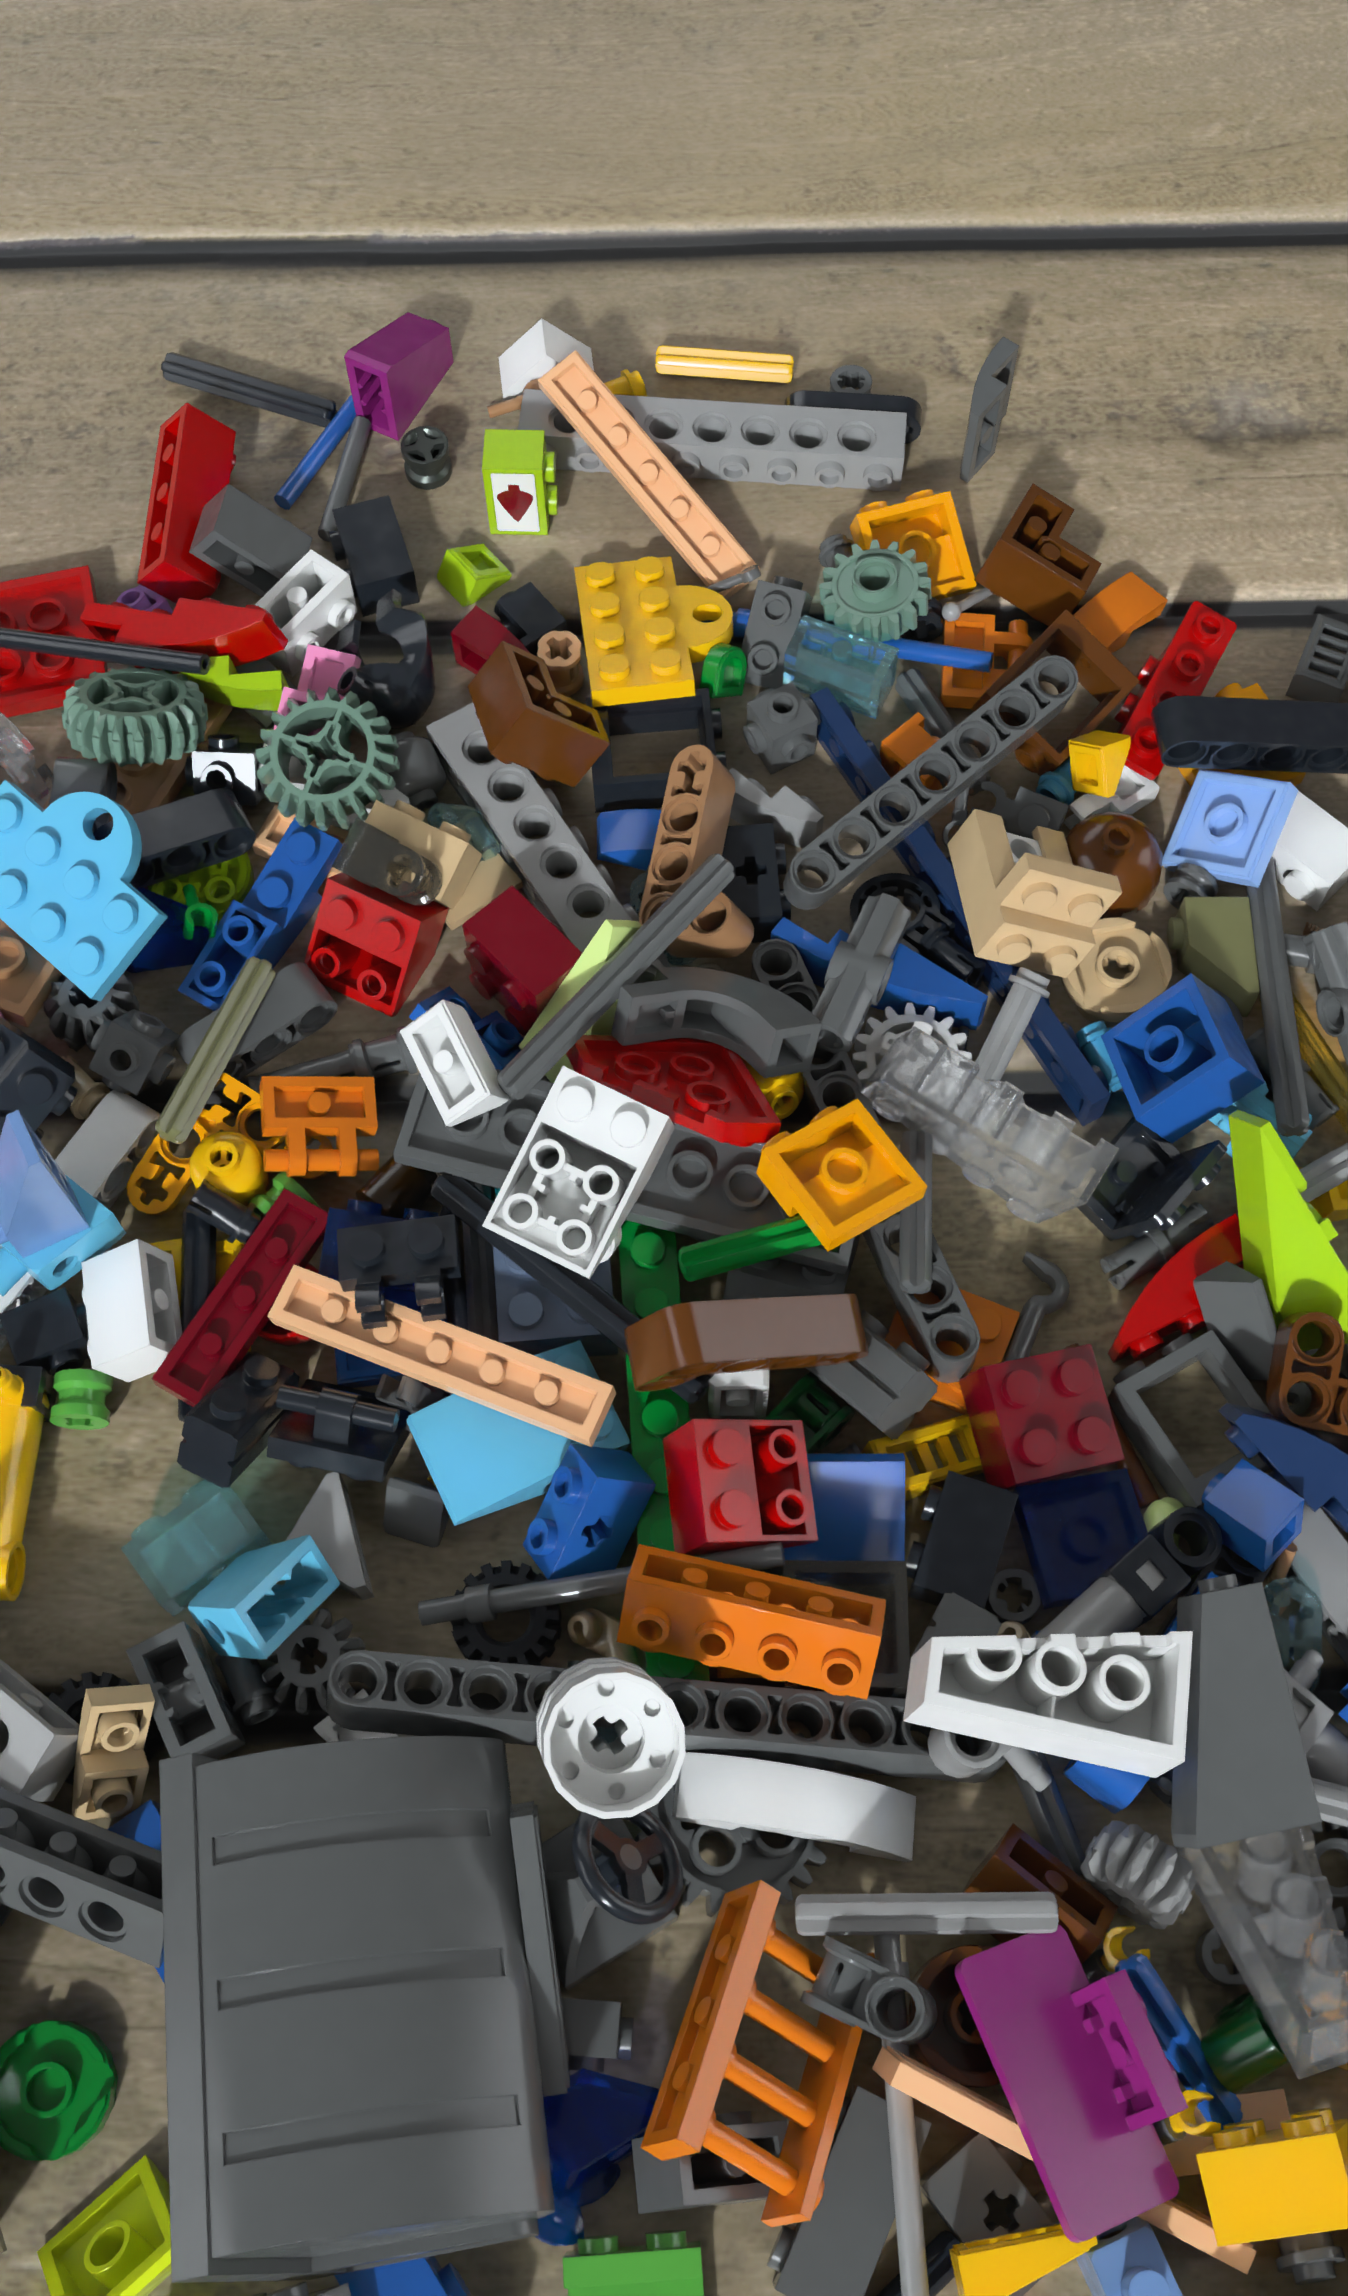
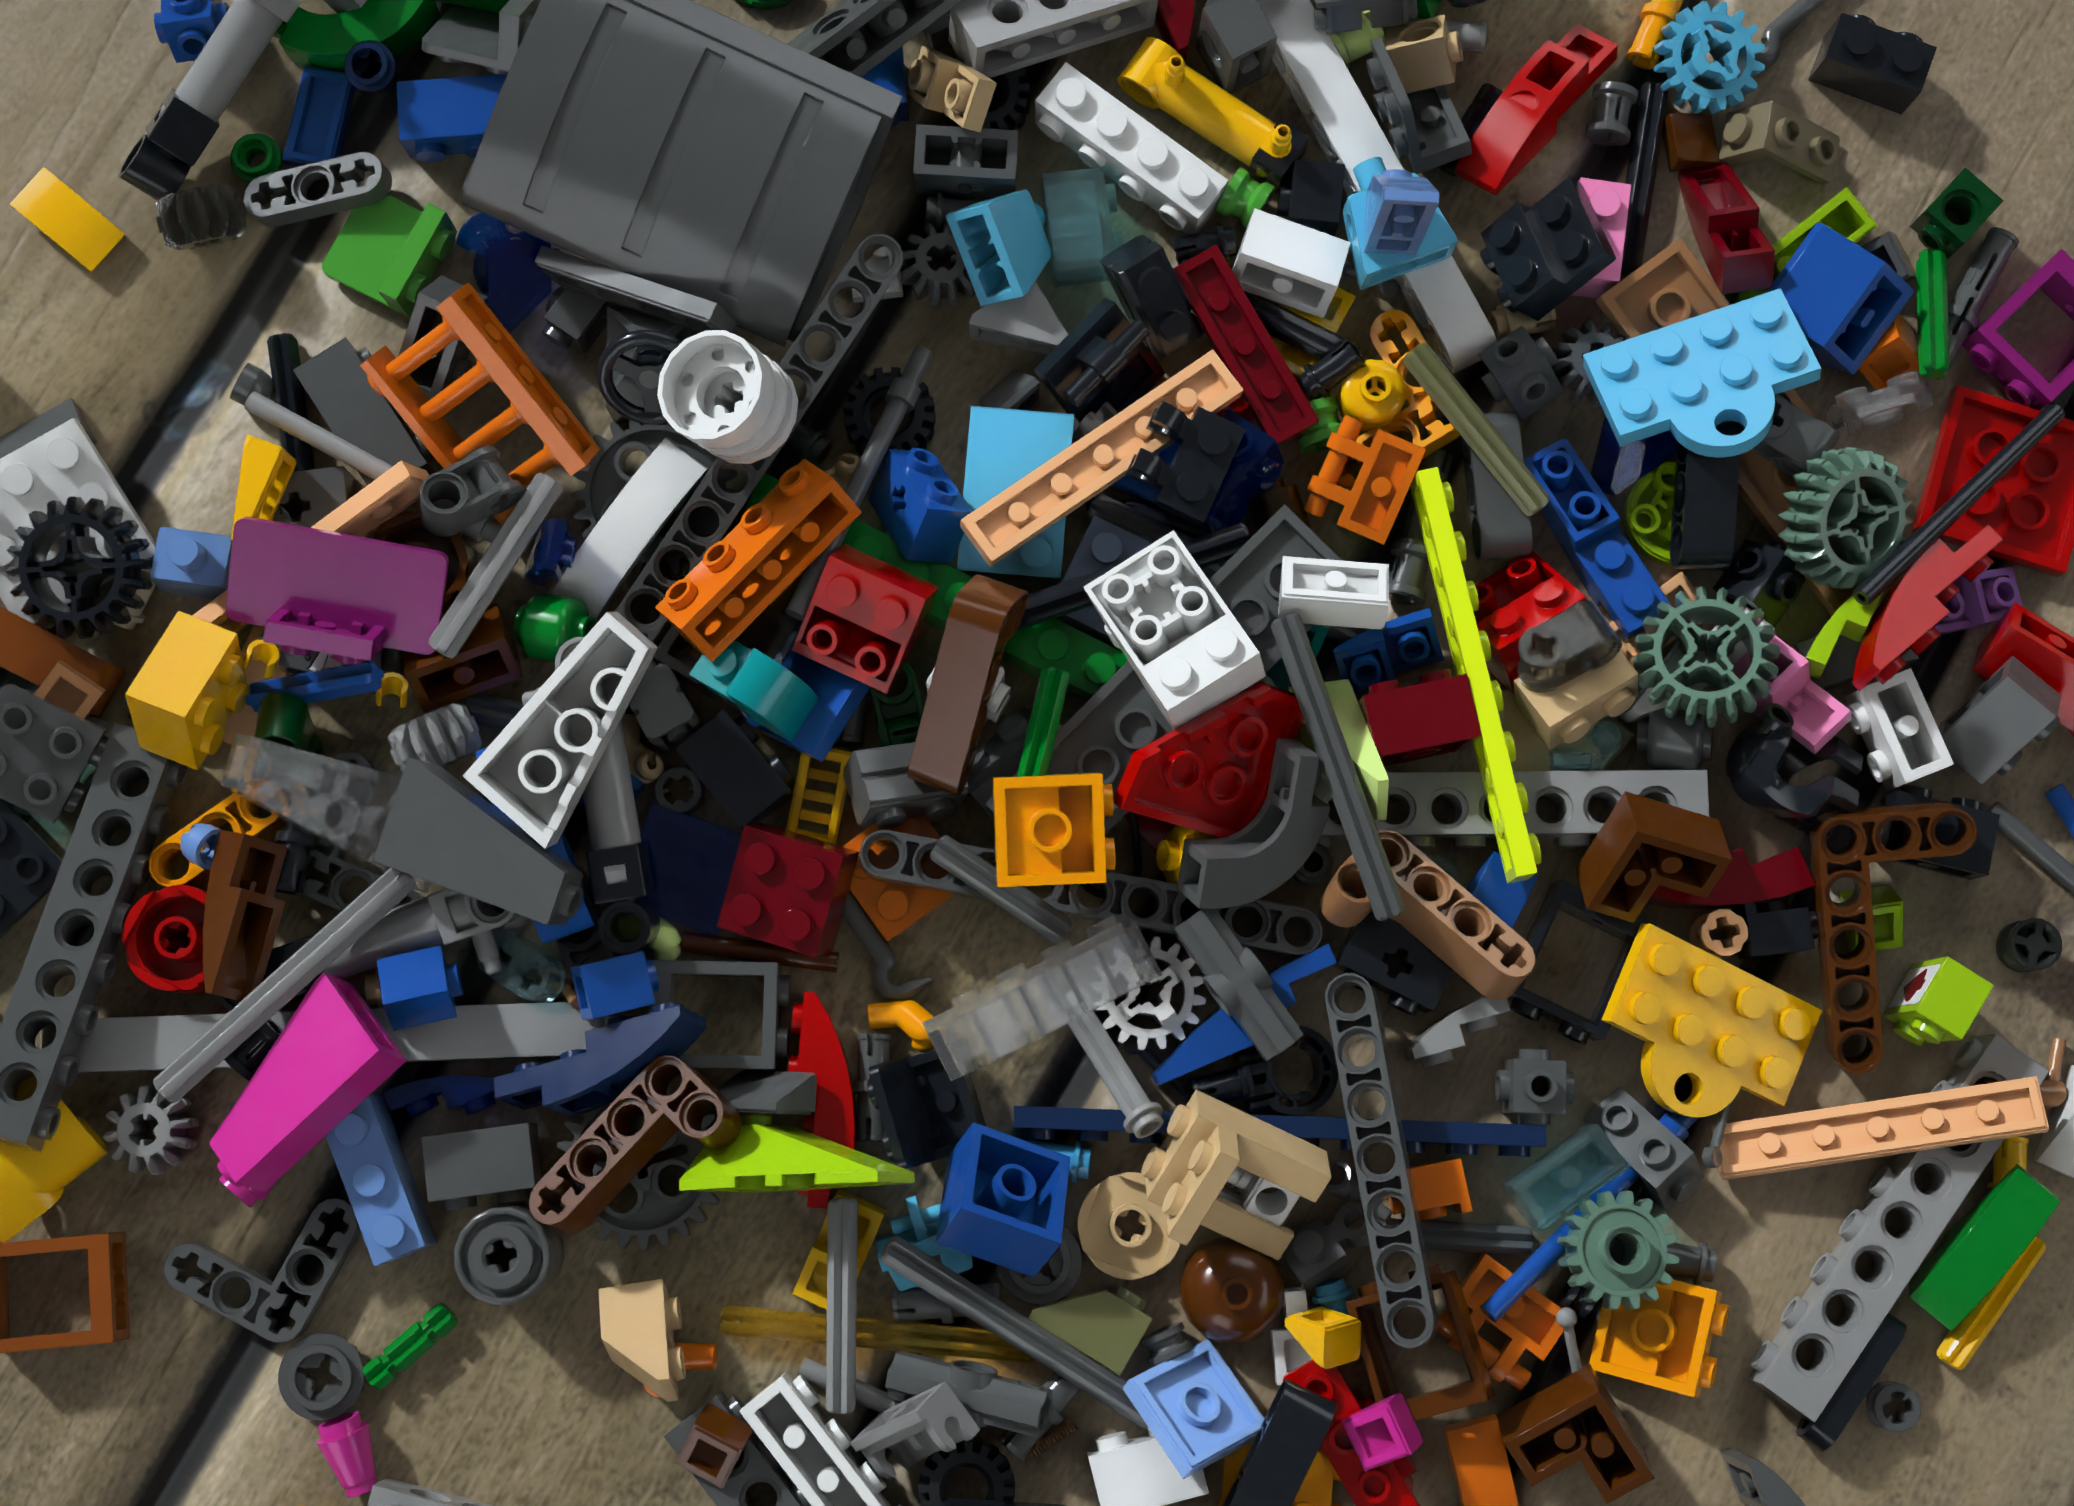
camera: 115 degrees right, 15 degrees up
(83, 1541) = (1130, 150): none -> white brick
(151, 1412) = (1201, 241): none -> black pin
(198, 914) = (1623, 480): green hand -> none
(441, 944) = (1470, 651): none -> neon yellow plate
(479, 572) = (1857, 911): none -> reddish brown beam
(688, 371) = (1982, 1247): none -> green slope
(724, 671) = (1620, 1068): green tile -> none
(869, 1866) = (550, 551): none -> clear blue slope
(878, 1553) = (758, 687): none -> teal brick
(940, 1824) = (549, 622): none -> green head
(1073, 1251) = (907, 1016): none -> light orange arm
(1146, 671) = (1383, 1432): none -> dark pink slope

